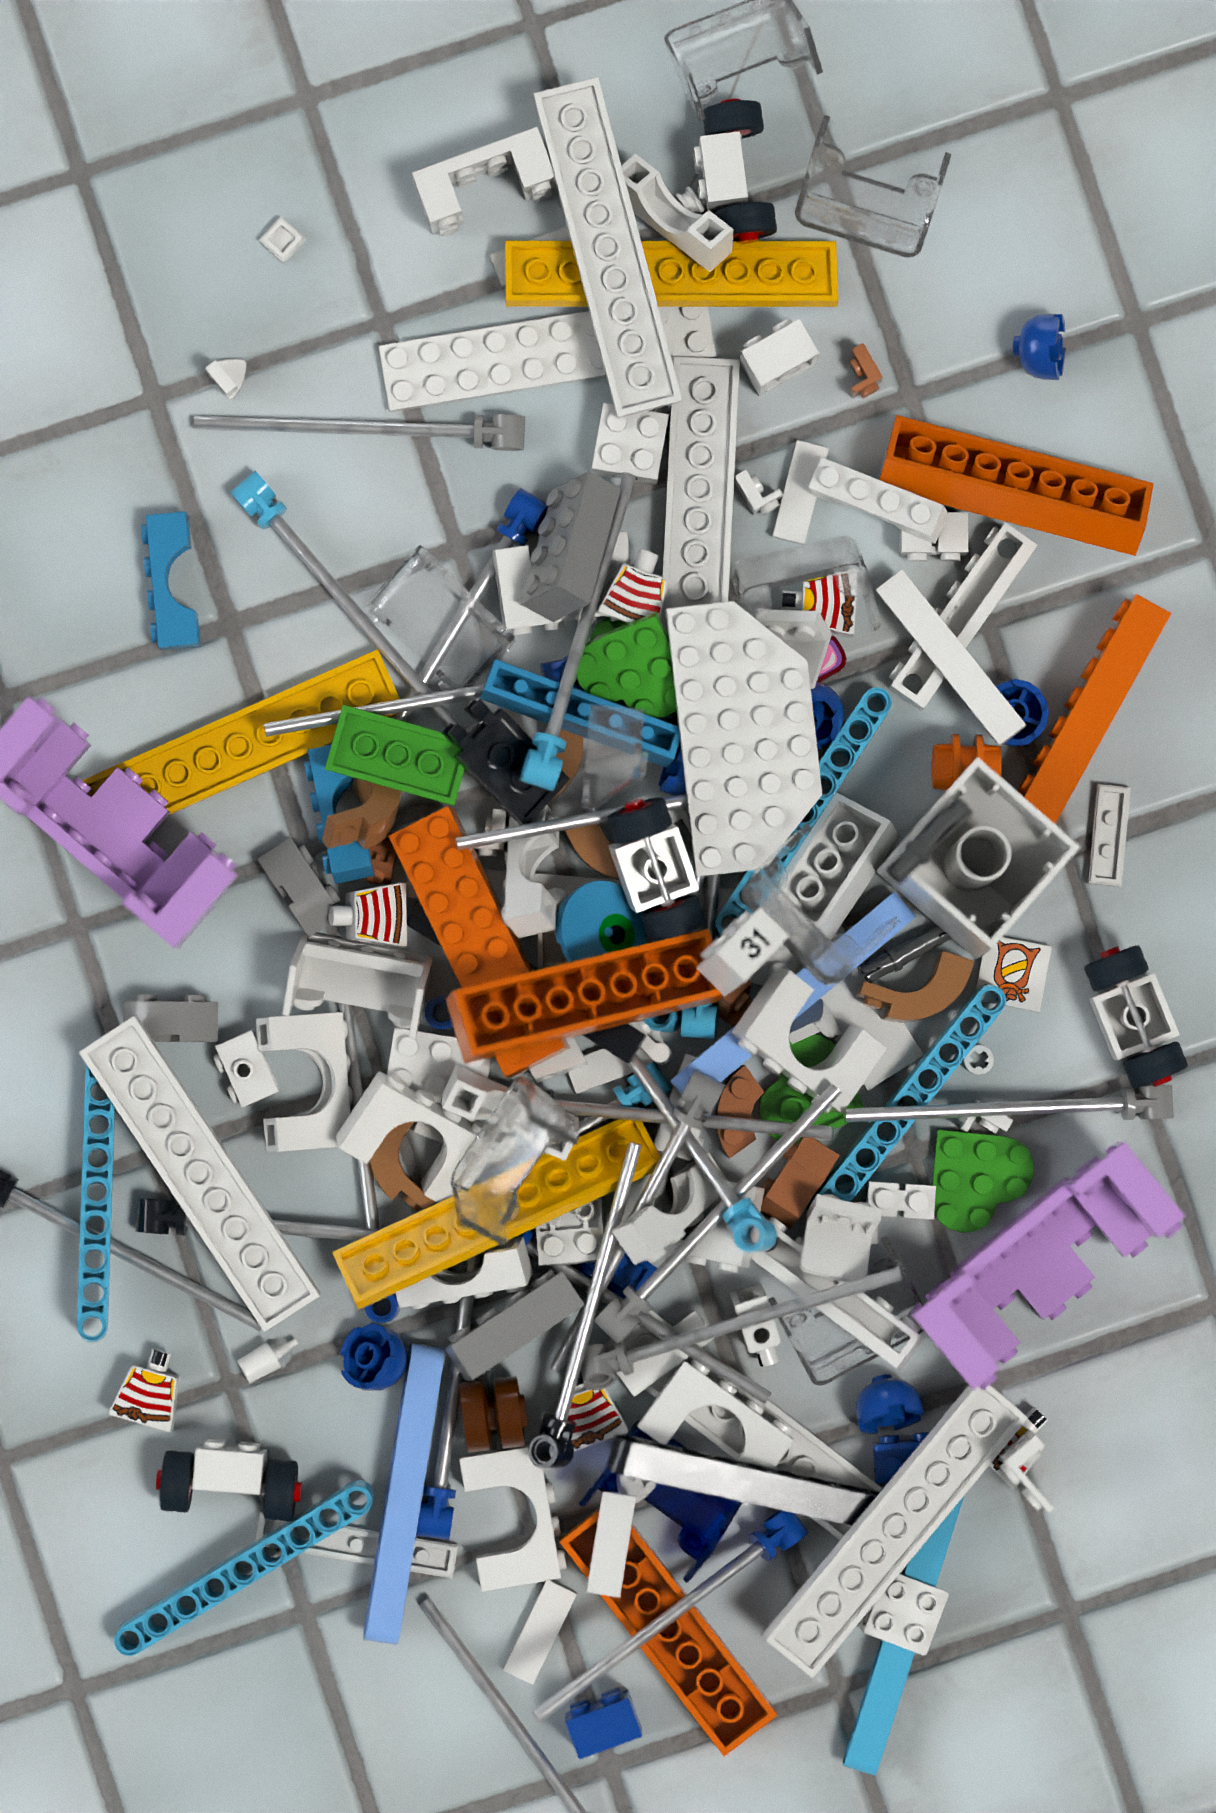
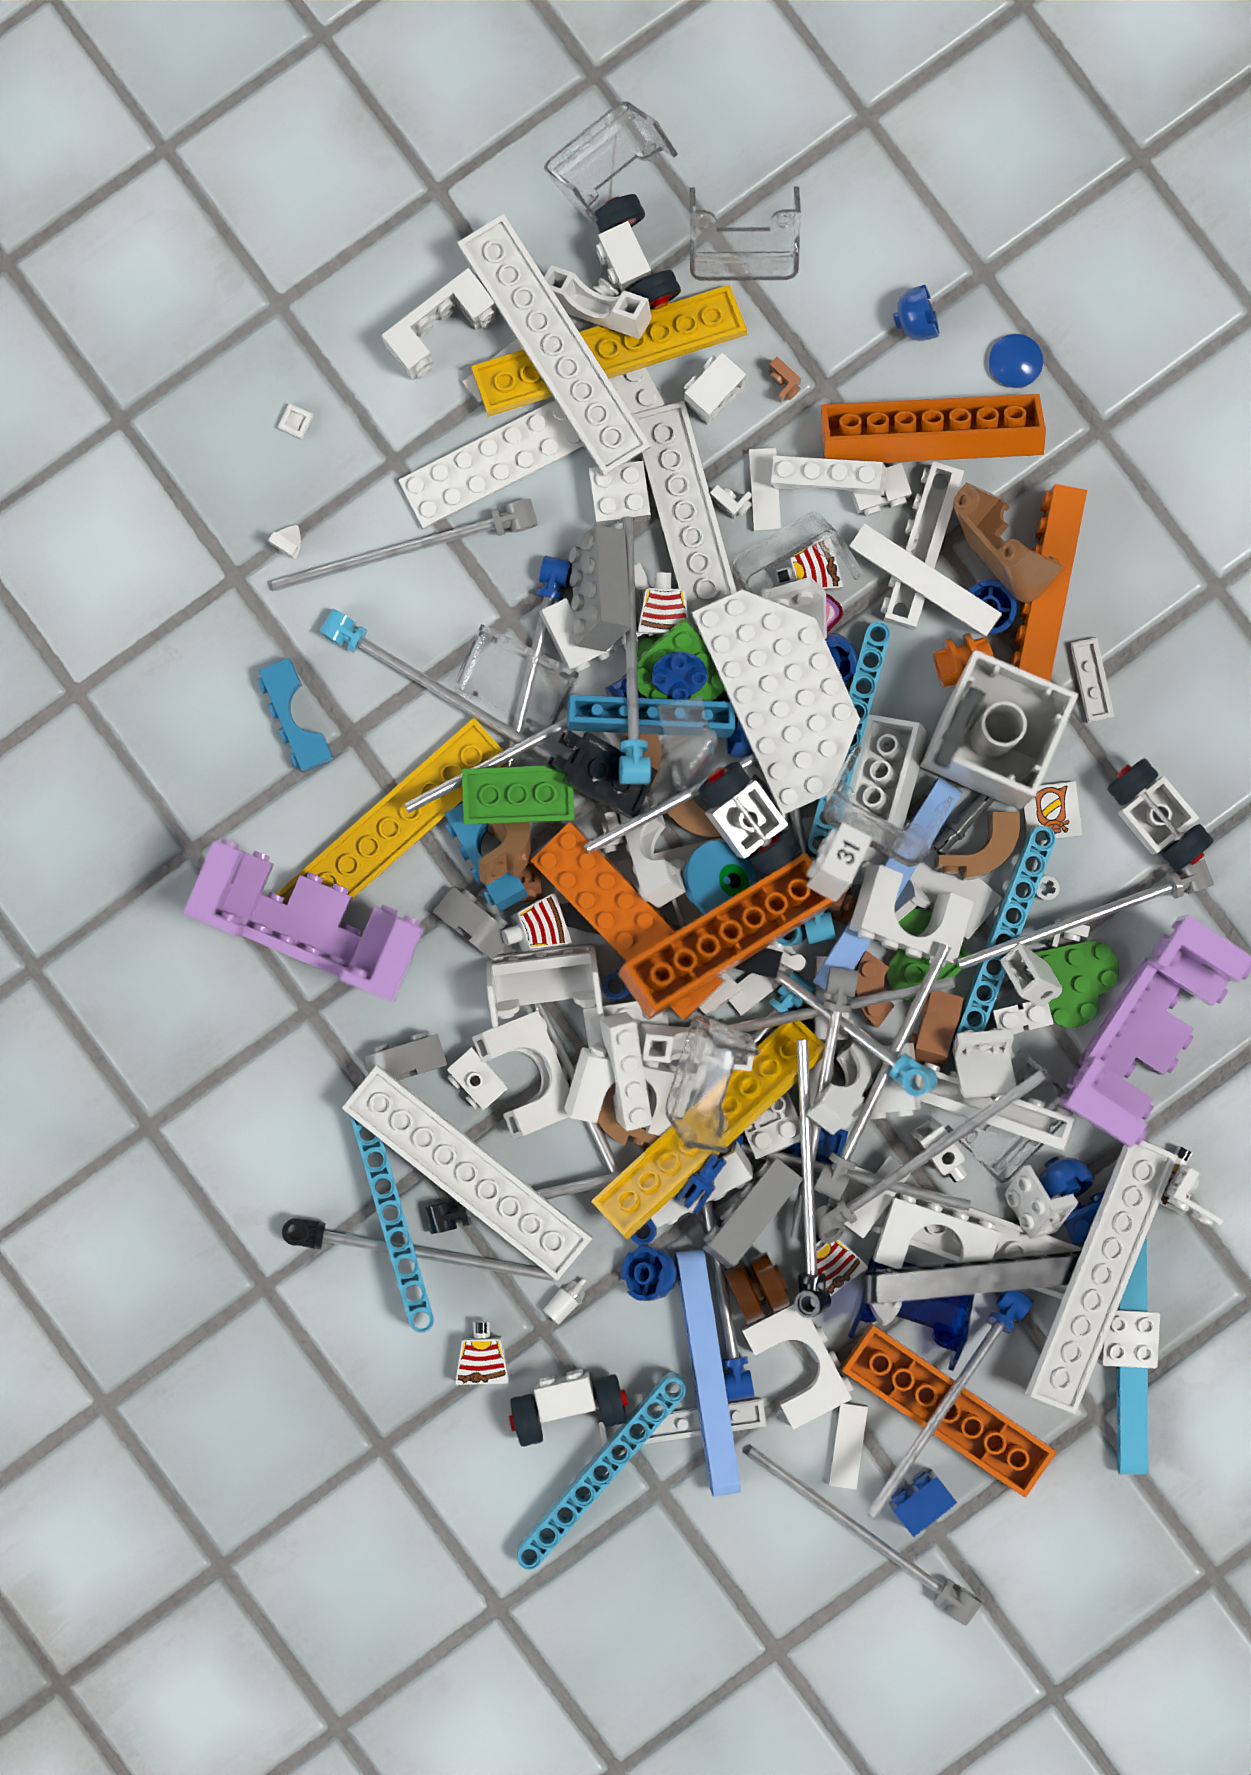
camera: 15 degrees left, 0 degrees up
(424, 1101) = (631, 1094): none -> white arch
(468, 1270) = (704, 1181): none -> blue arm
(611, 1544) = (883, 1359): white tile -> none
(629, 676) = (679, 674): none -> blue dish
(842, 1426) = (1034, 1208): none -> white bracket
(929, 1164) = (1037, 984): none -> white torso
(1039, 614) = (1016, 567): none -> medium nougat windscreen
(1140, 436) = (1016, 360): none -> blue dish

